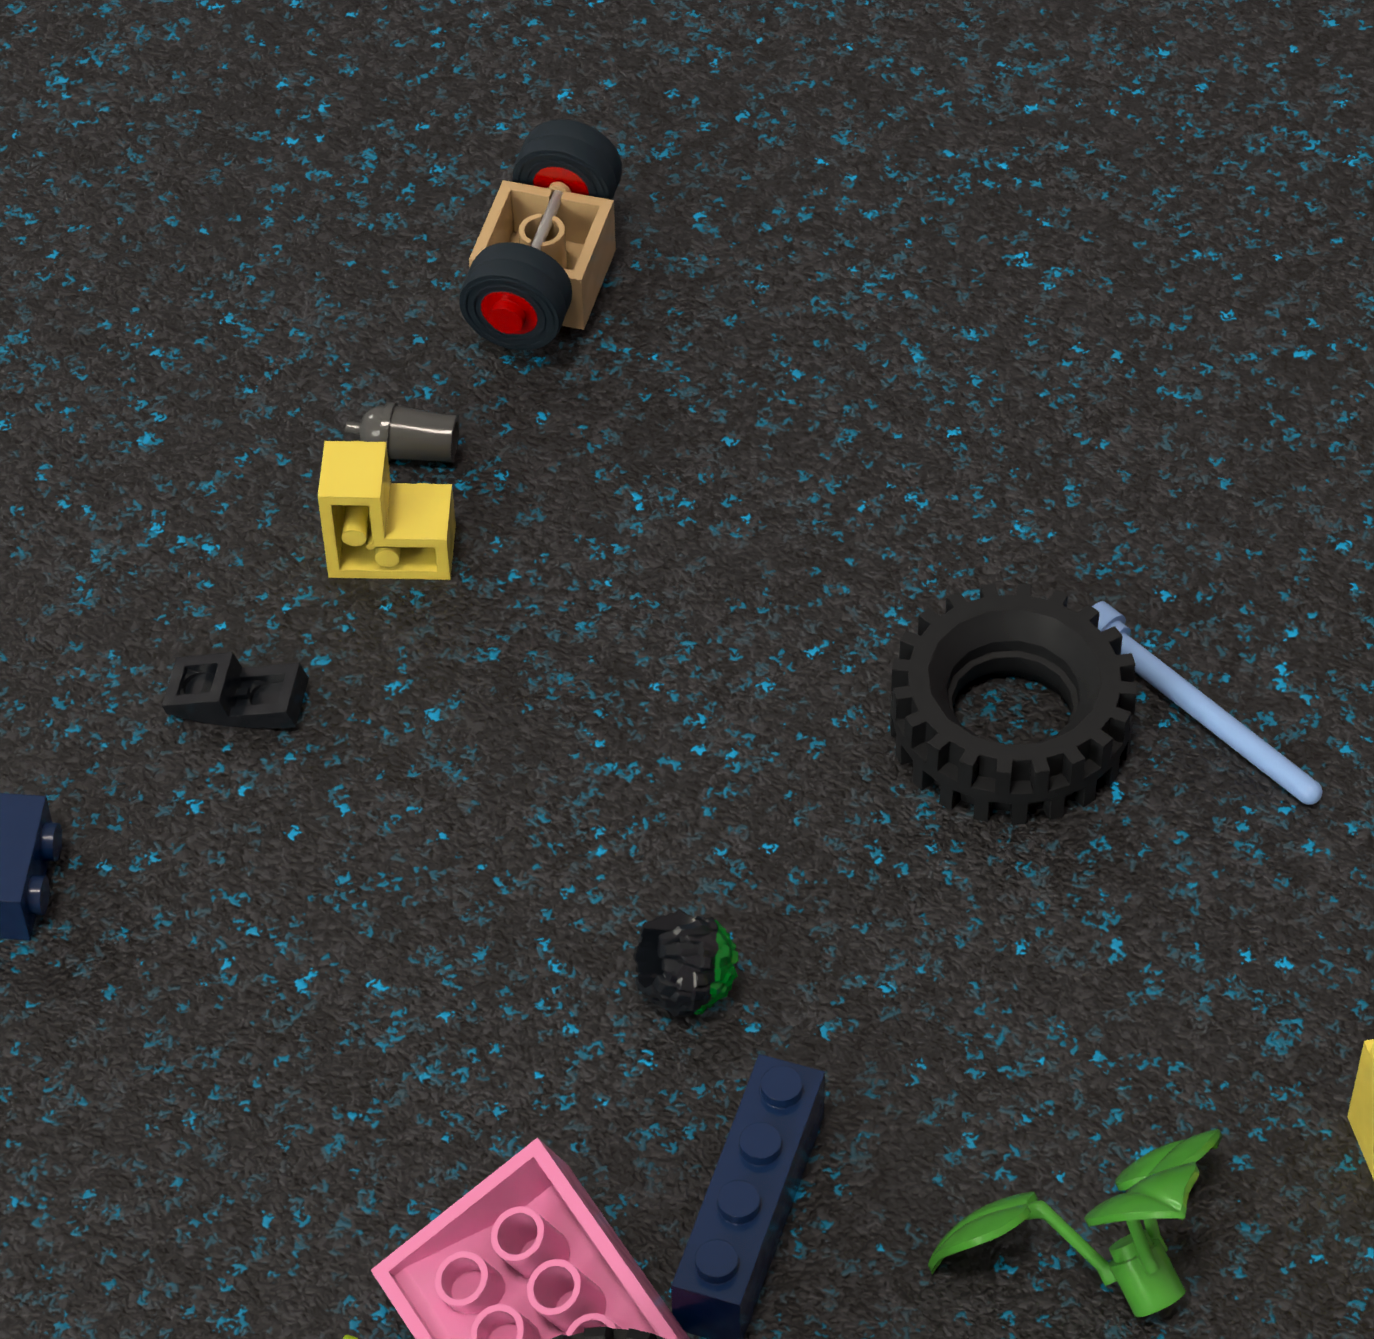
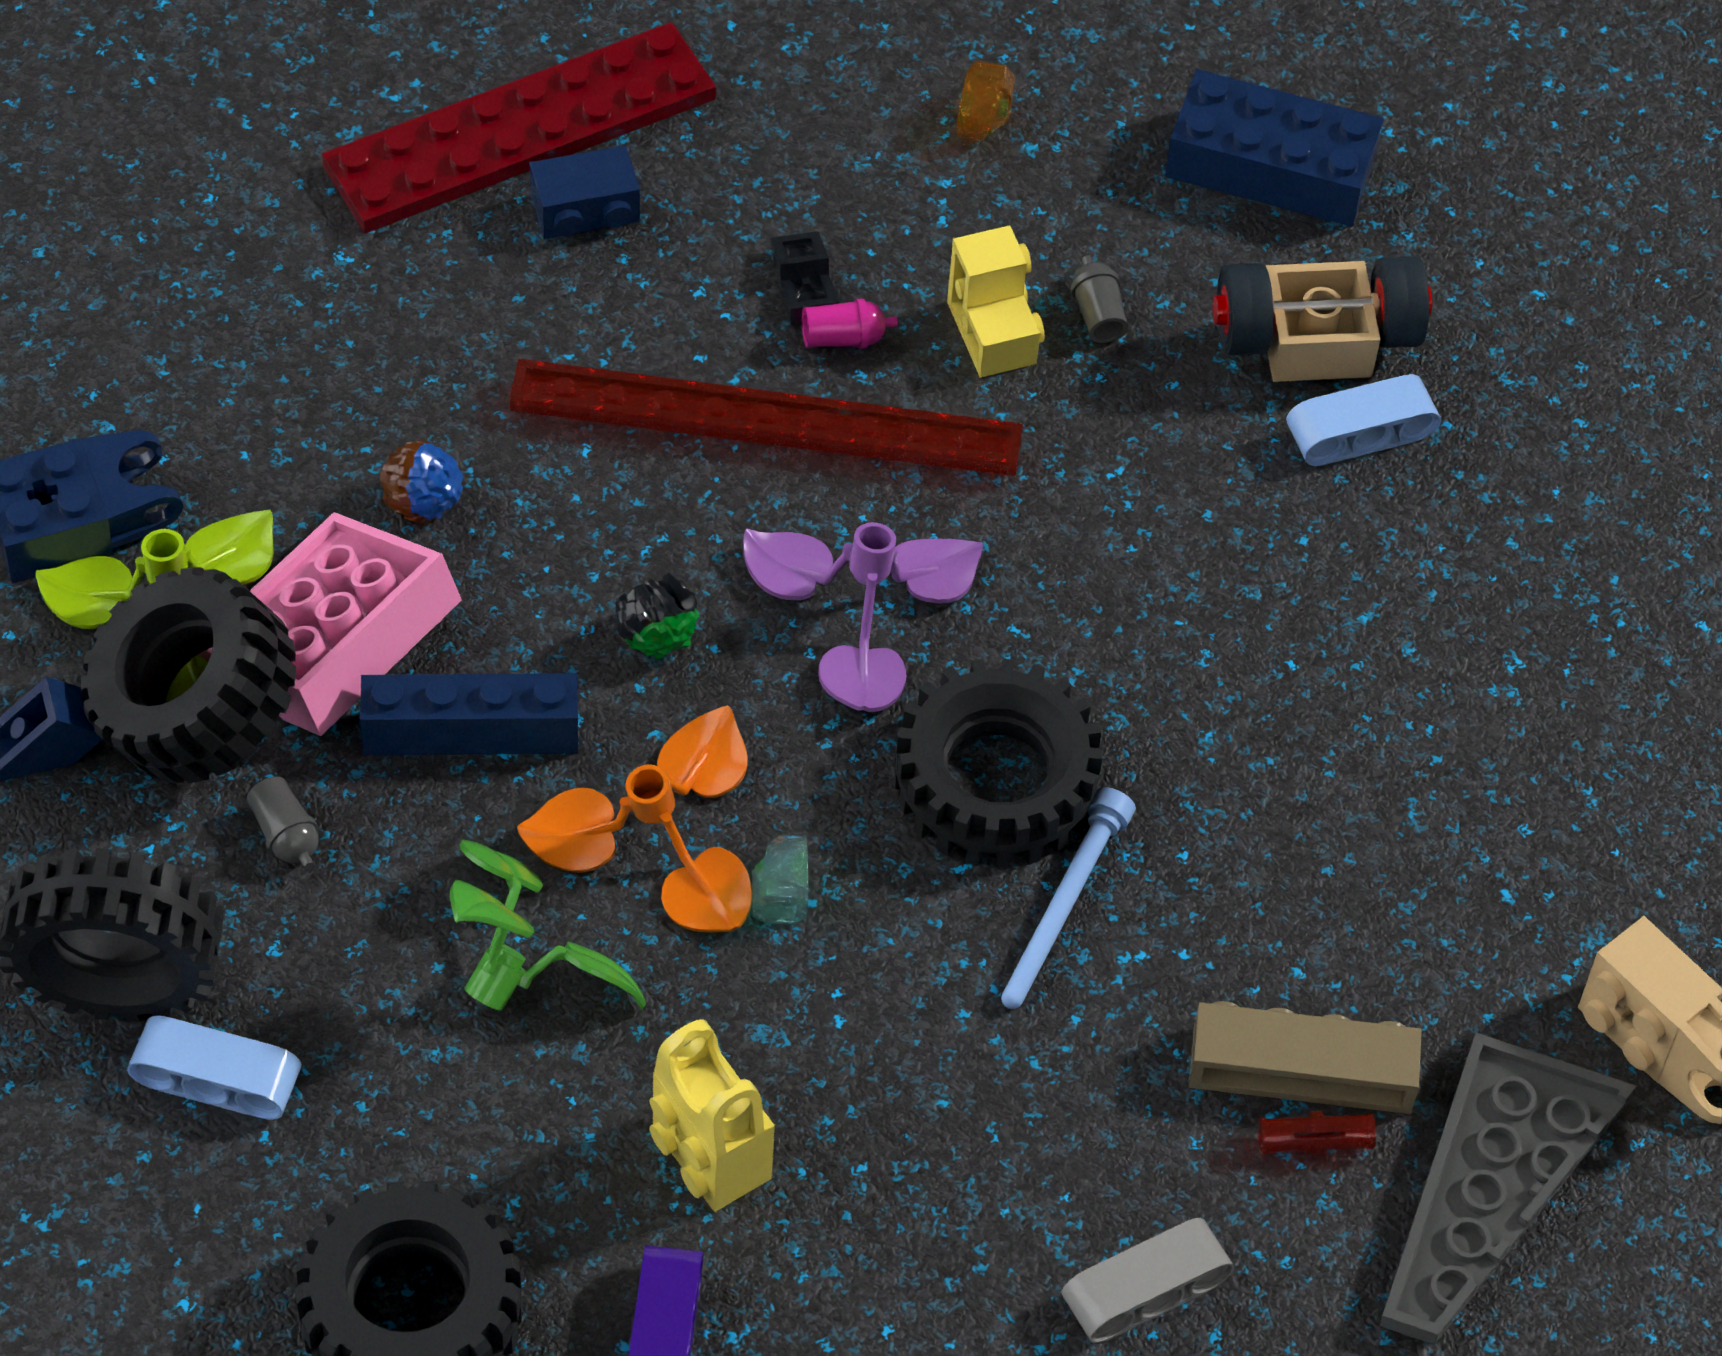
camera: 65 degrees right, 5 degrees up
(73, 451) = (984, 100): none -> clear orange rock
(281, 224) = (1274, 147): none -> dark blue brick
(330, 669) = (845, 324): none -> dark pink piece
(376, 1152) = (421, 481): none -> blue piece
(418, 796) = (766, 417): none -> clear red plate
(677, 268) = (1363, 420): none -> light blue beam
(712, 703) = (934, 572): none -> medium lavender plant
(943, 1143) = (703, 756): none -> orange plant
(1093, 946) = (782, 881): none -> clear light blue rock

